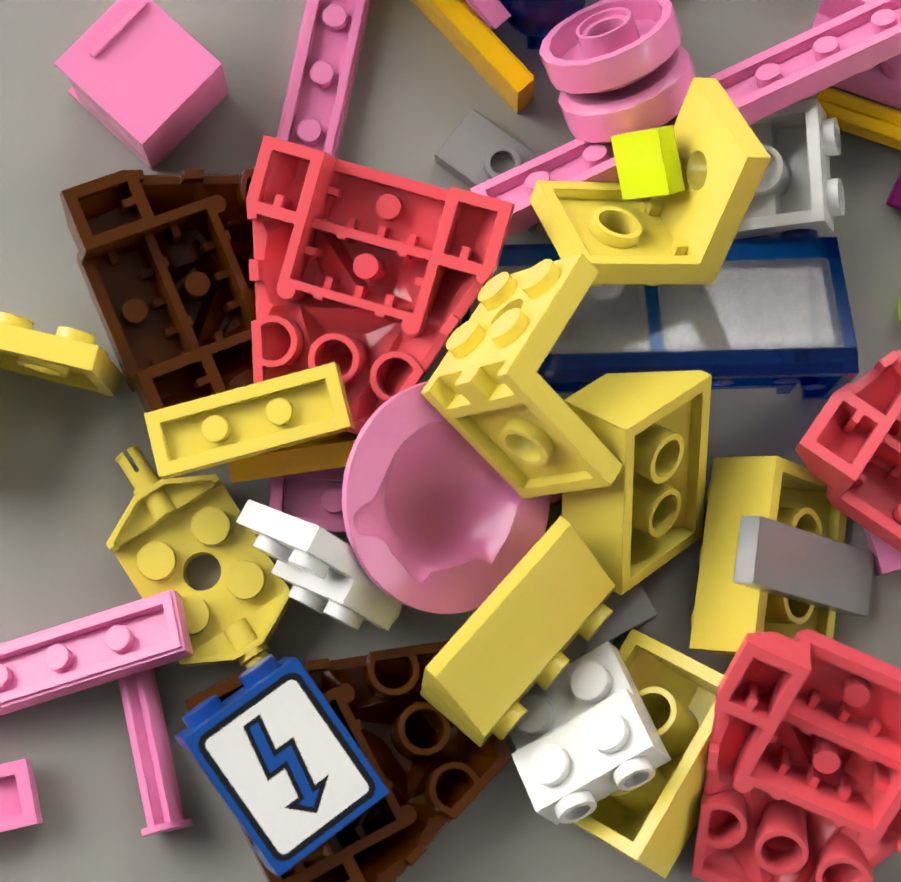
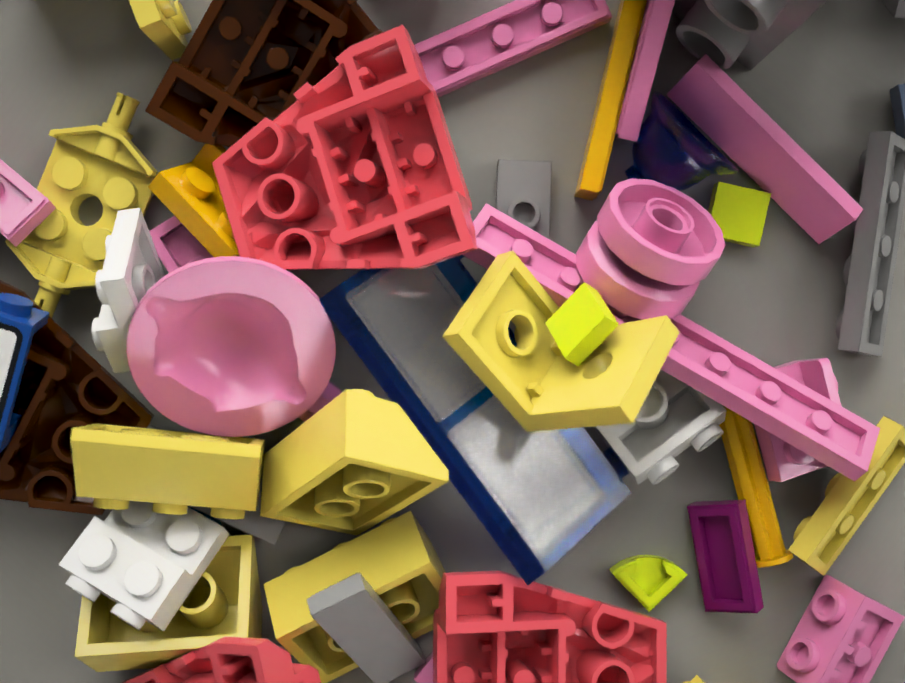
camera: 50 degrees right, 10 degrees up
(249, 421) = (188, 169): light yellow plate -> none
(498, 398) = (345, 322): light yellow bracket -> none

